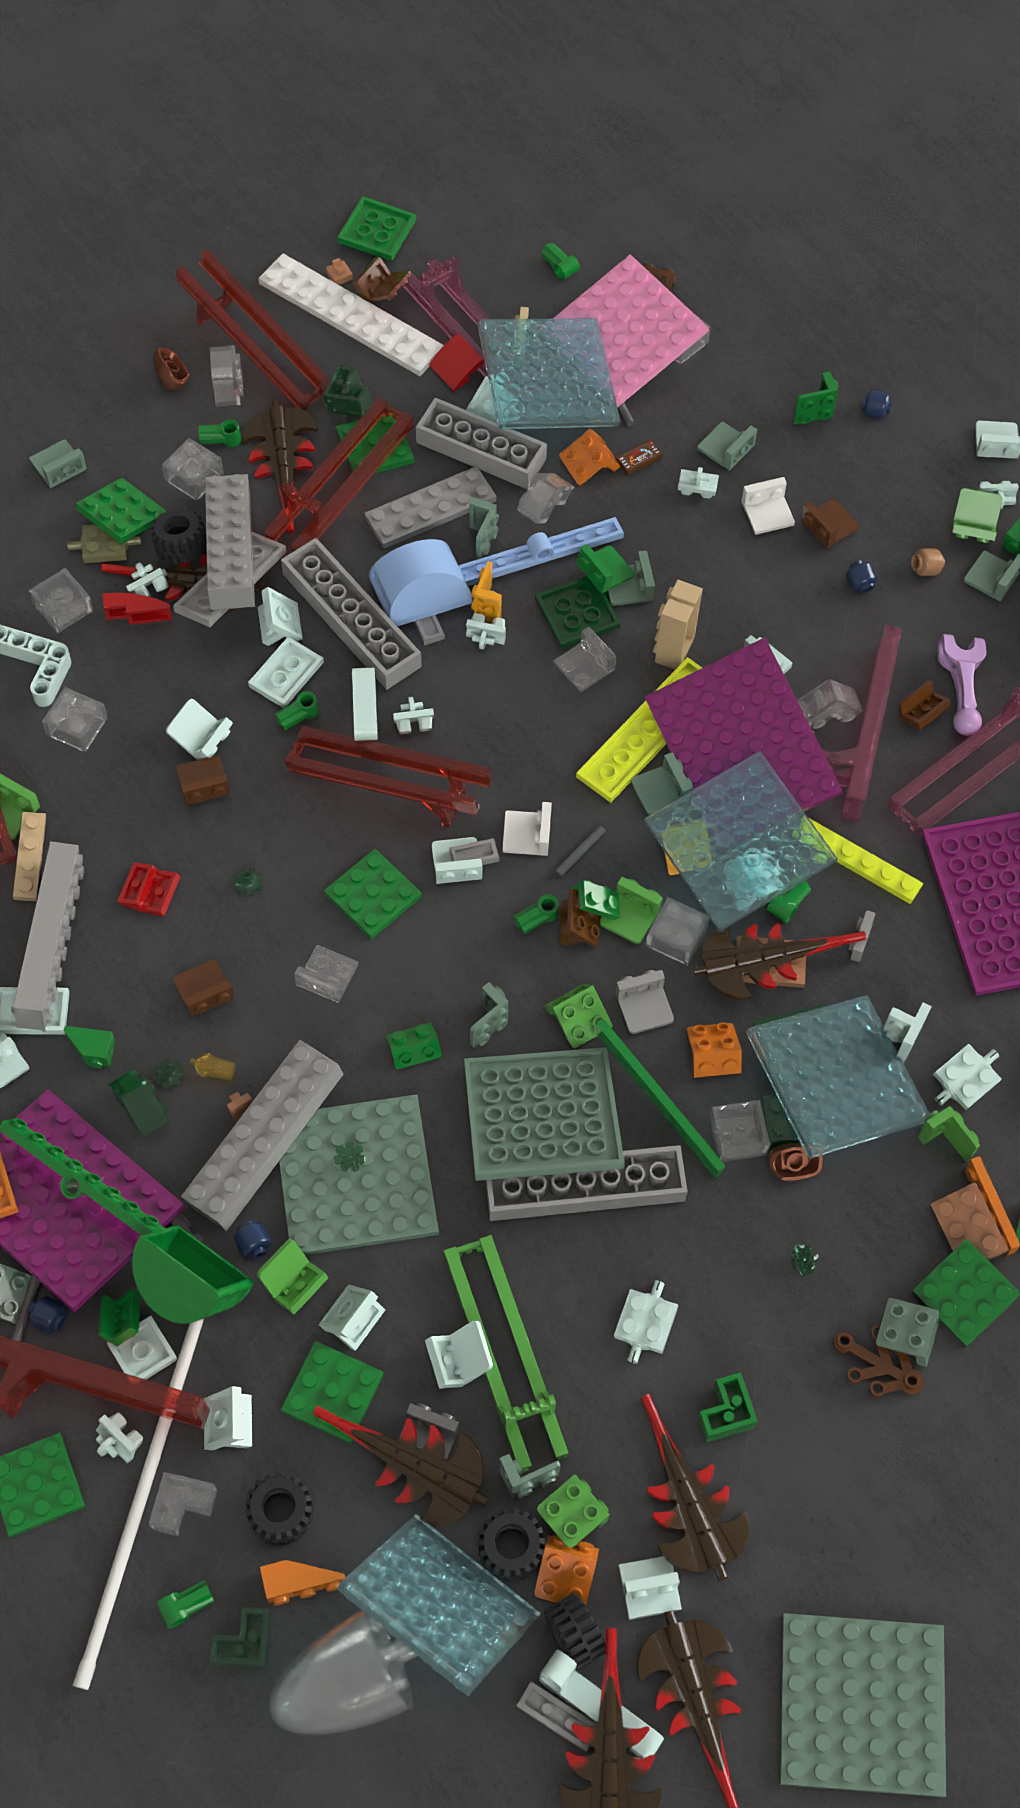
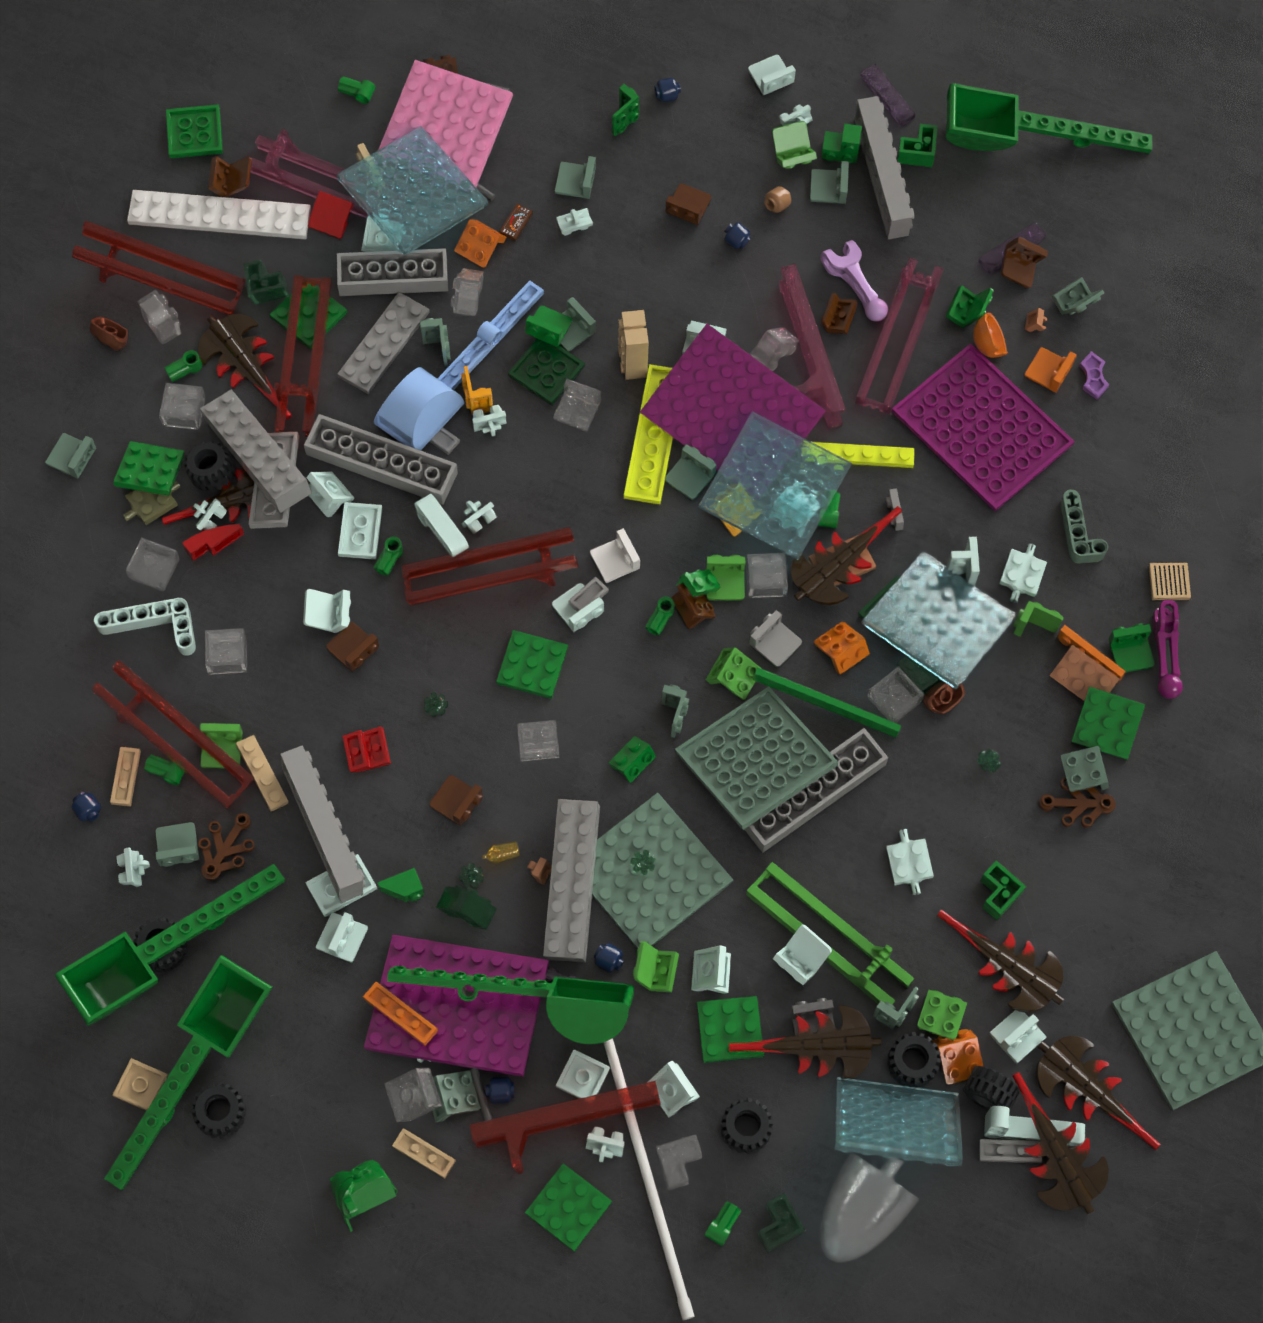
camera: 30 degrees left, 5 degrees up
(119, 1318) = (555, 1062): green bracket -> none
(292, 1579) = (784, 1165): orange slope -> none
(339, 272) = (187, 183): nougat tile -> none
(580, 850) = (660, 552): dark grey bar -> none
(767, 506) = (636, 215): white bracket -> none

